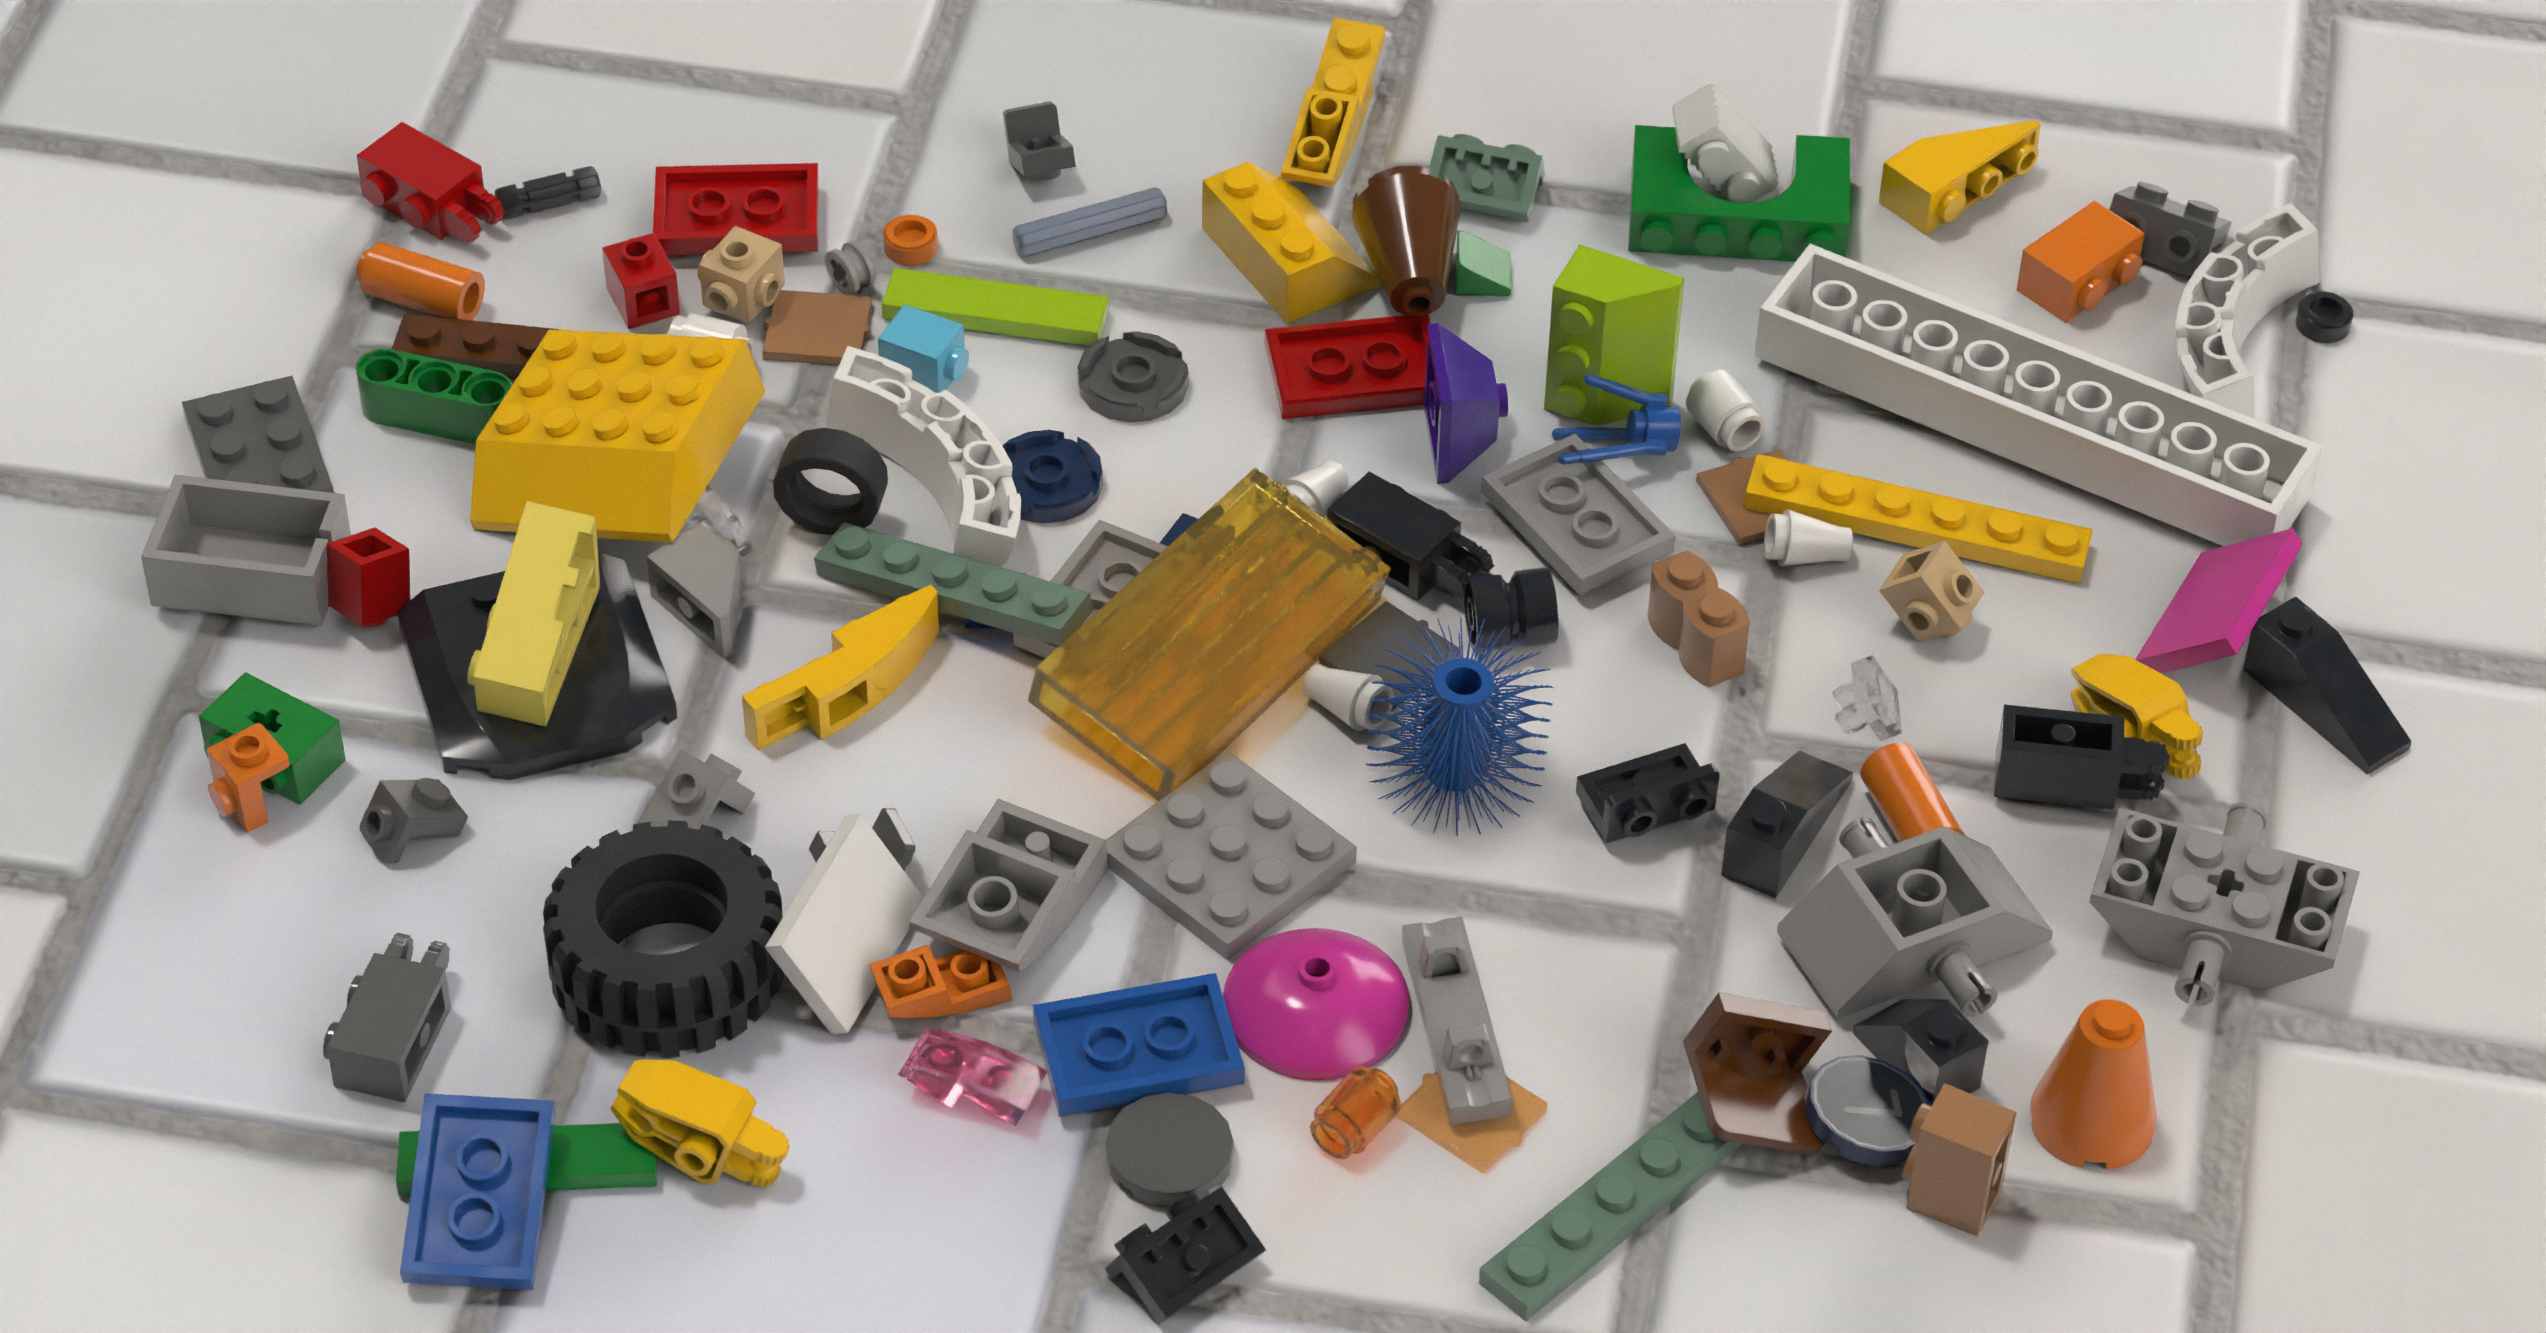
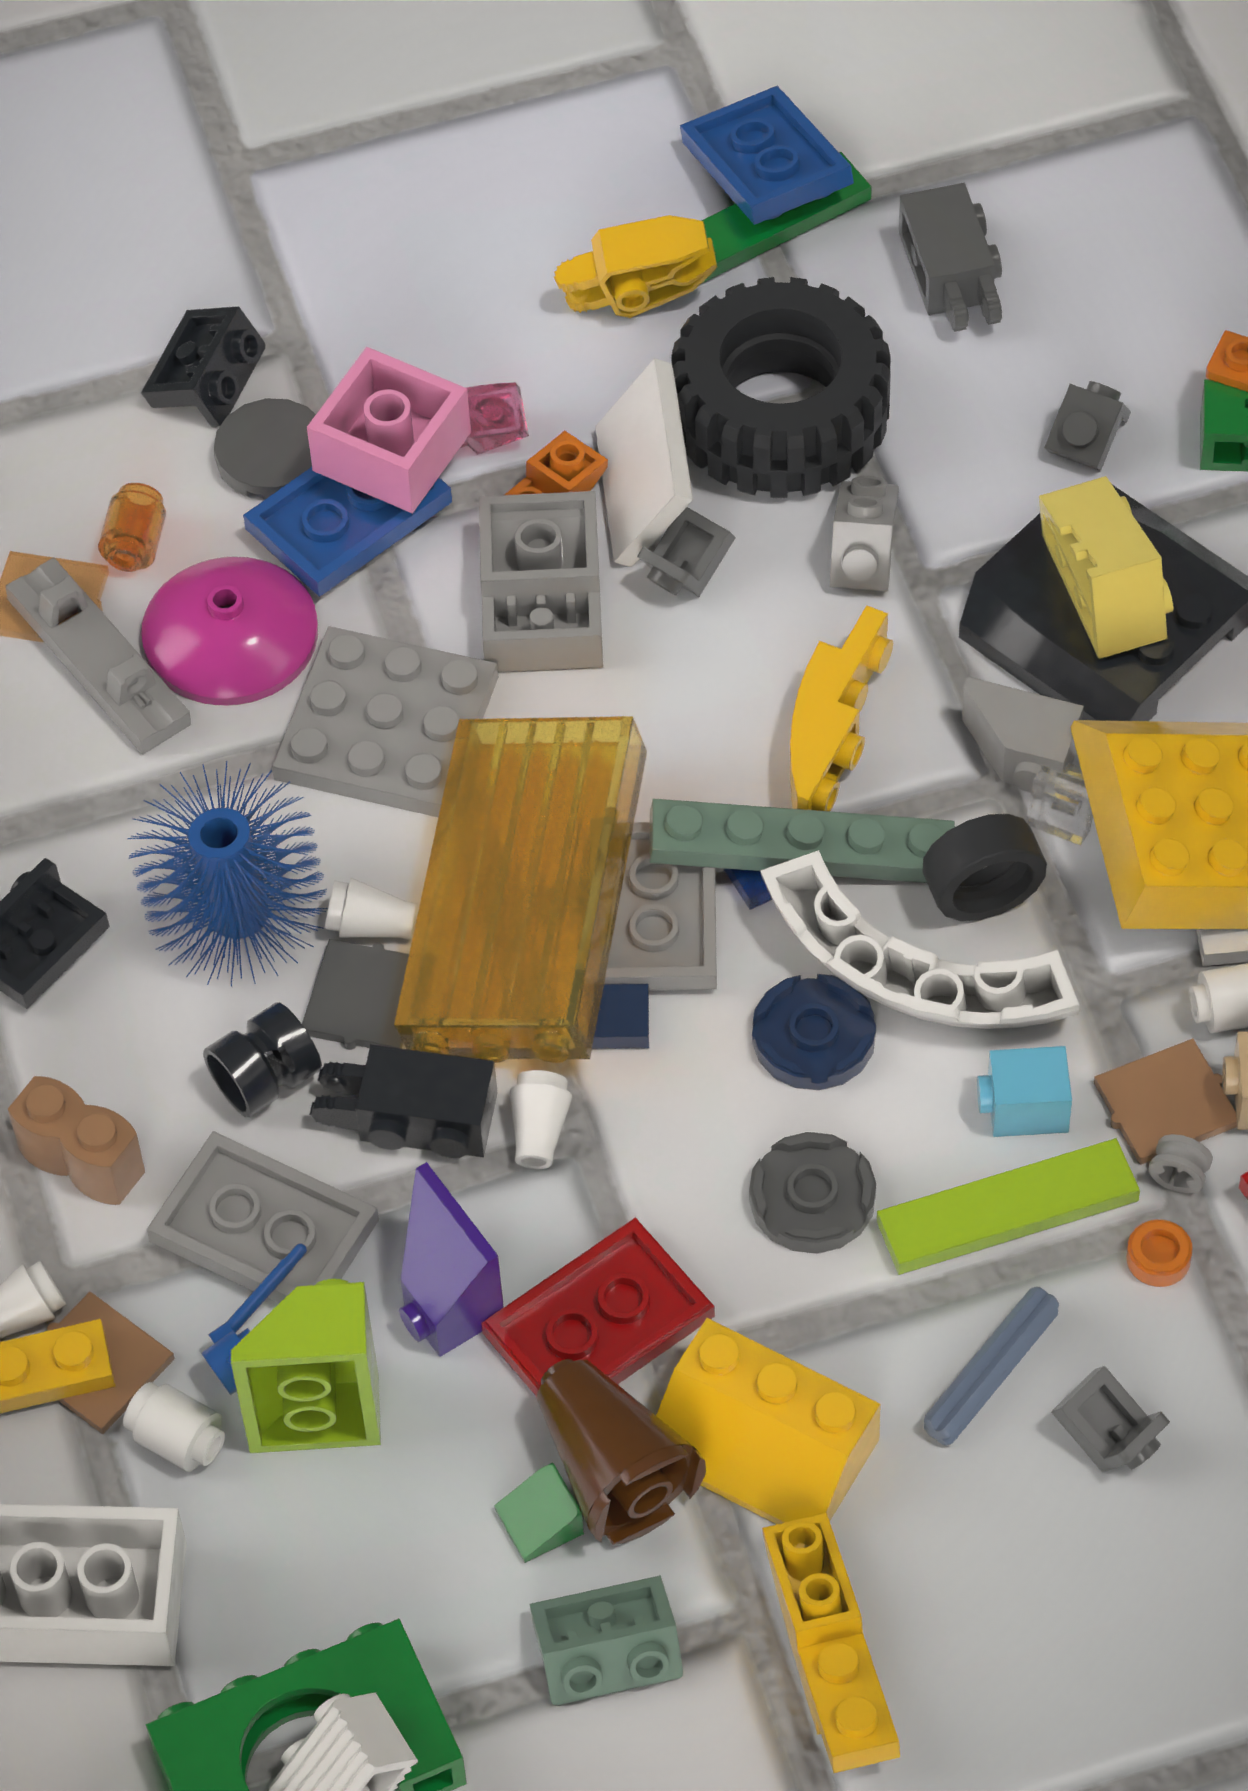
camera: 155 degrees right, 10 degrees up
(1067, 1024) = (389, 429): none -> bright pink brick

